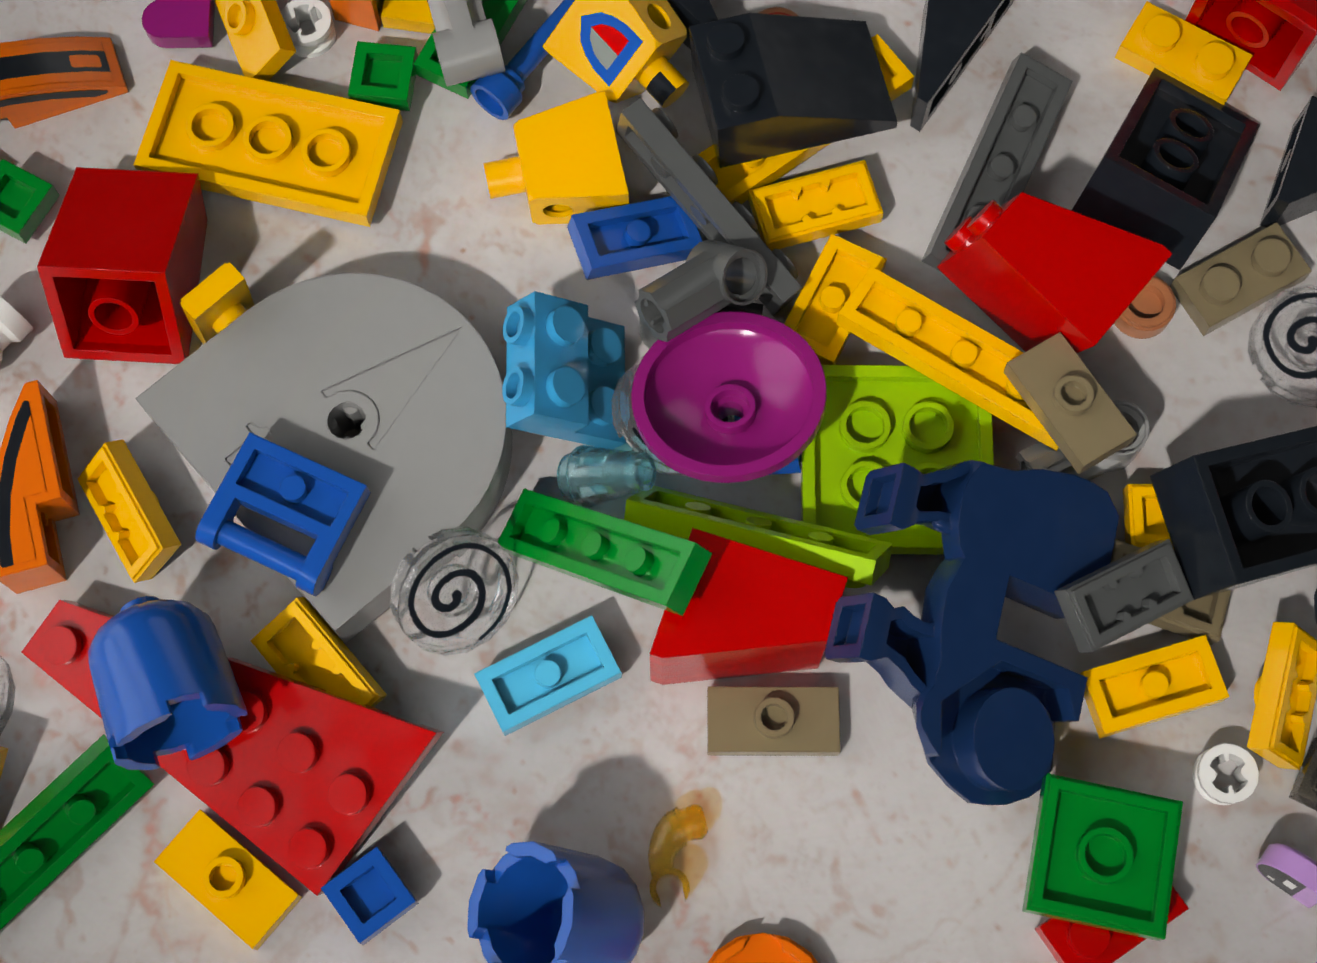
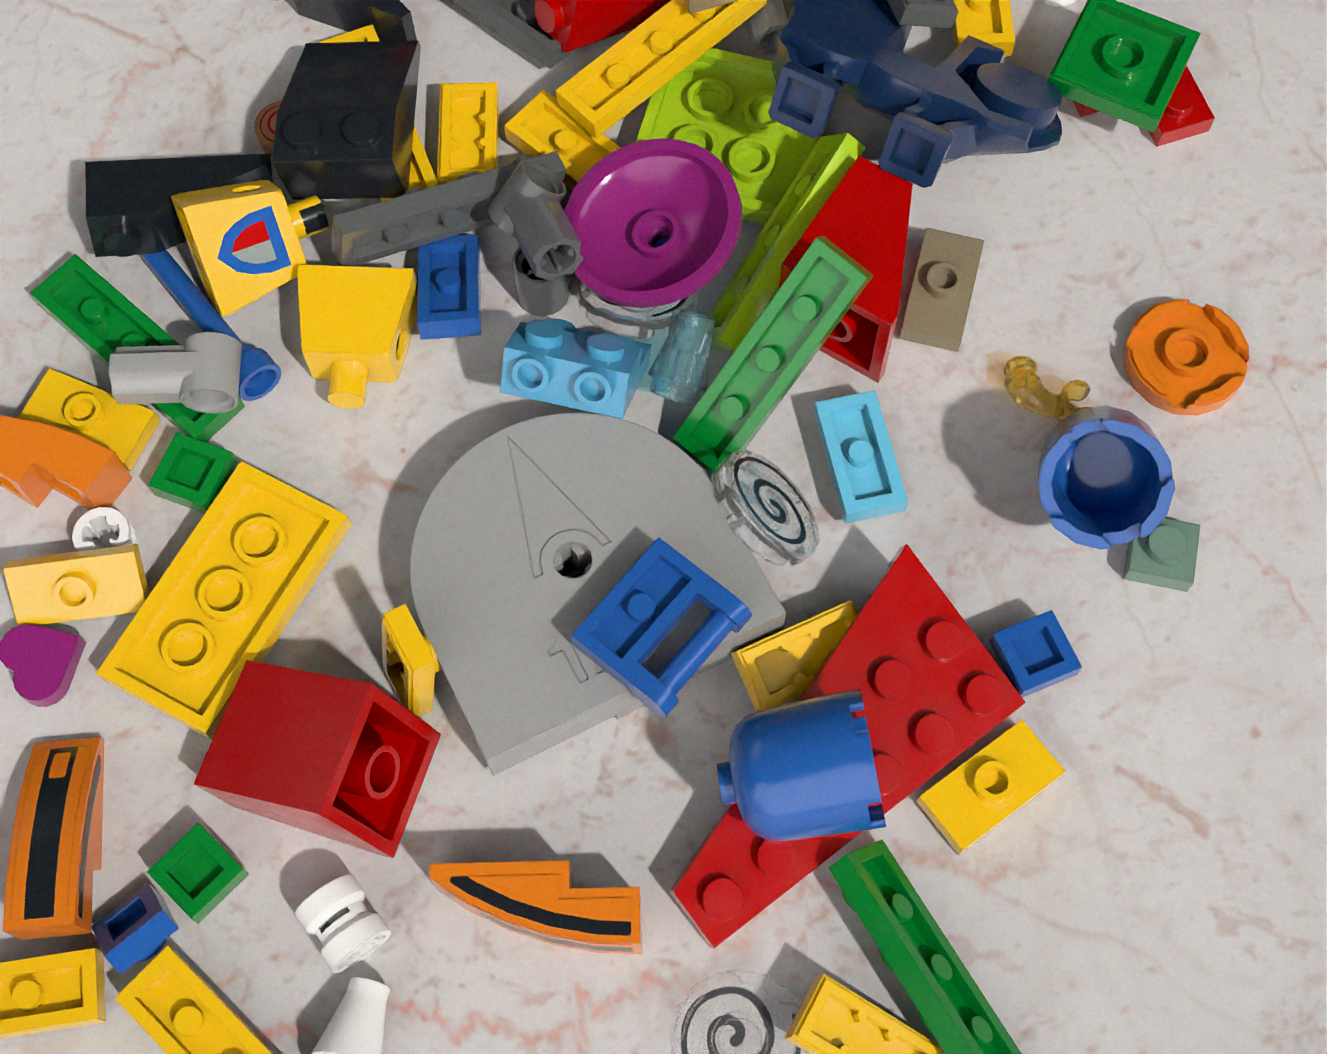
camera: 75 degrees left, 5 degrees down
(128, 511) = (592, 809): yellow plate -> none

